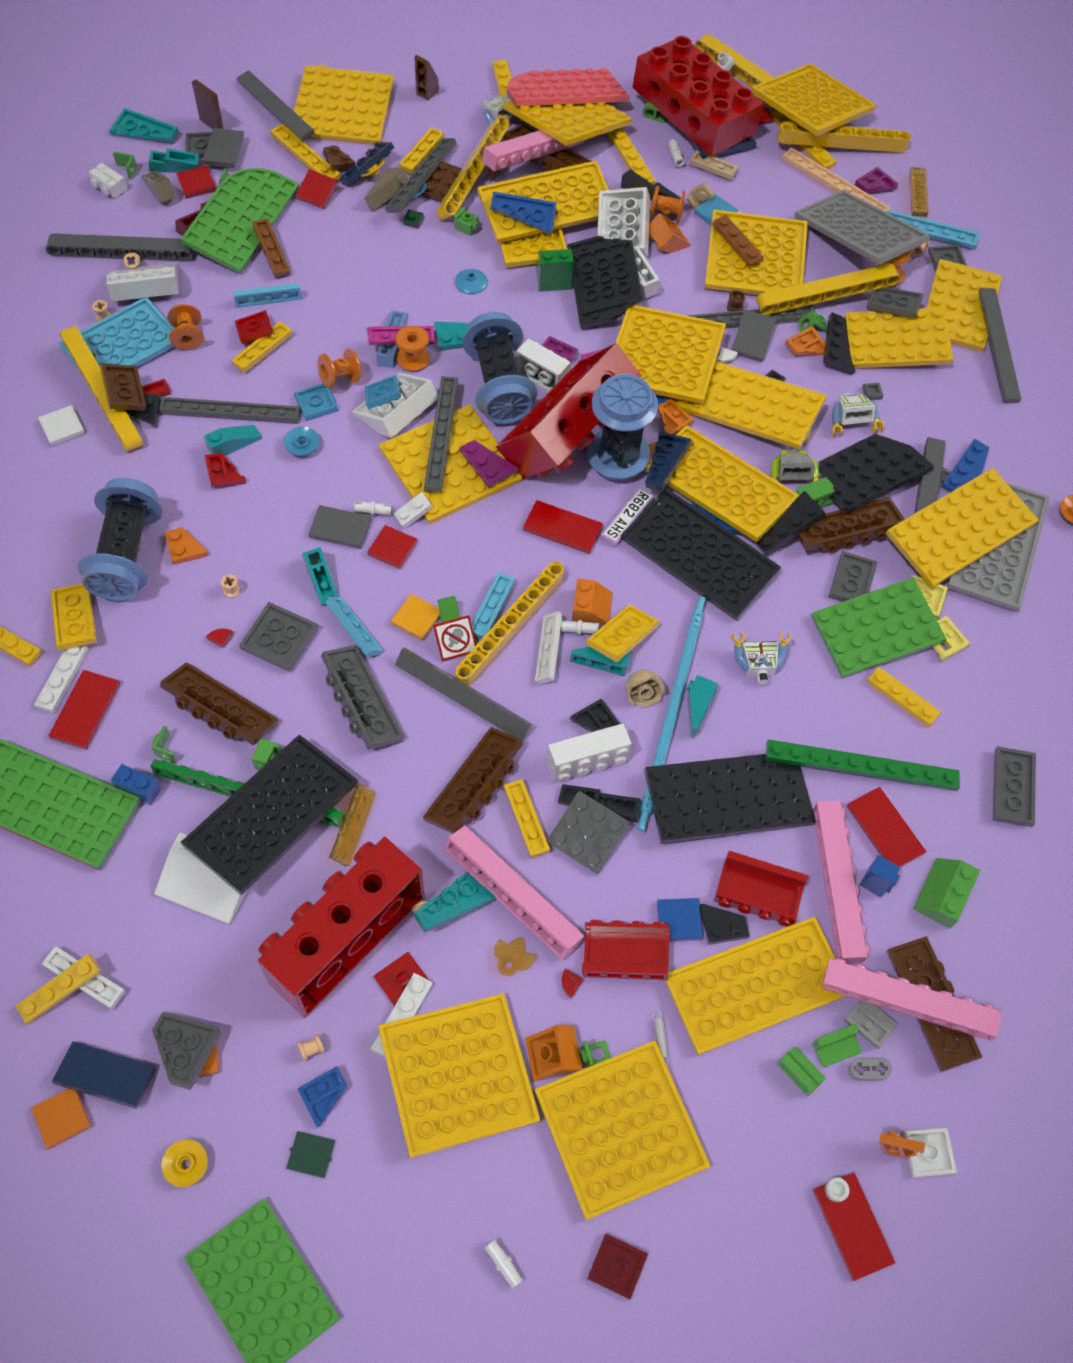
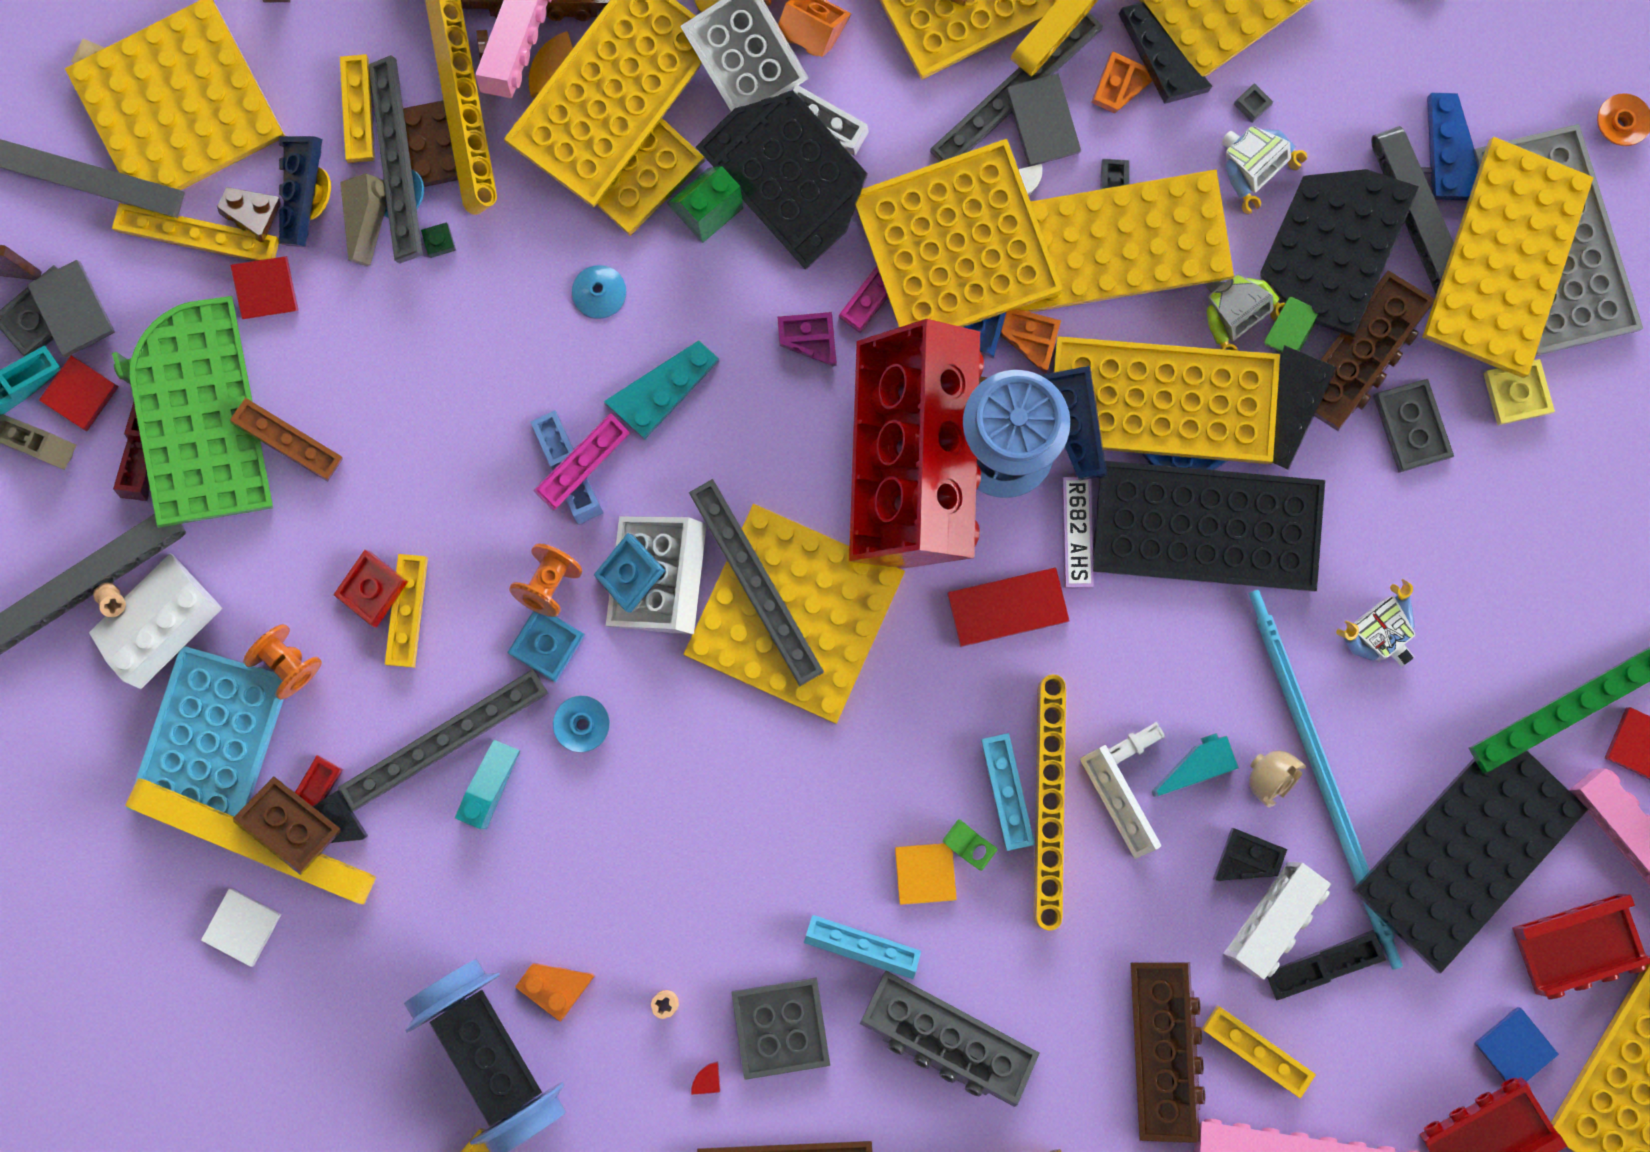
camera: 30 degrees left, 20 degrees up
(100, 308) = (148, 711): light nougat bush -> none
(221, 471) = (513, 843): red wing -> none
(267, 295) = (336, 528): medium azure plate -> none
(319, 574) = (764, 906): teal slope -> none
(340, 526) = (729, 813): dark grey tile -> none
(372, 508) = (751, 756): white pin -> none
(392, 546) = (818, 794): red tile -> none
(412, 345) = (610, 460): orange hose -> none
(413, 510) = (807, 724): white plate -> none
(454, 637) = (1000, 874): piece -> none
(463, 694) = (1065, 943): dark grey tile -> none
(466, 221) = (519, 204): bright green brick -> none
(486, 463) = (849, 587): magenta wing -> none
(505, 393) = (763, 431): medium blue brick -> none
(526, 210) = (605, 131): blue wing -> none
(541, 365) = (812, 380): white brick -> none
(588, 832) = (1344, 1019): dark grey plate -> none
(591, 602) = (1126, 699): orange slope -> none
(622, 633) = (1200, 720): yellow tile -> none
(699, 698) = (1349, 741): teal slope -> none
(723, 925) = (1568, 1020): black wing -> none
(736, 301) = (983, 73): reddish brown wheel -> none
(814, 319) = (1111, 36): bright green bracket -> none
(878, 627) = (1493, 481): bright green plate -> none
(903, 697) = (1579, 557): yellow plate -> none
(955, 640) = (1581, 429): light yellow plate -> none

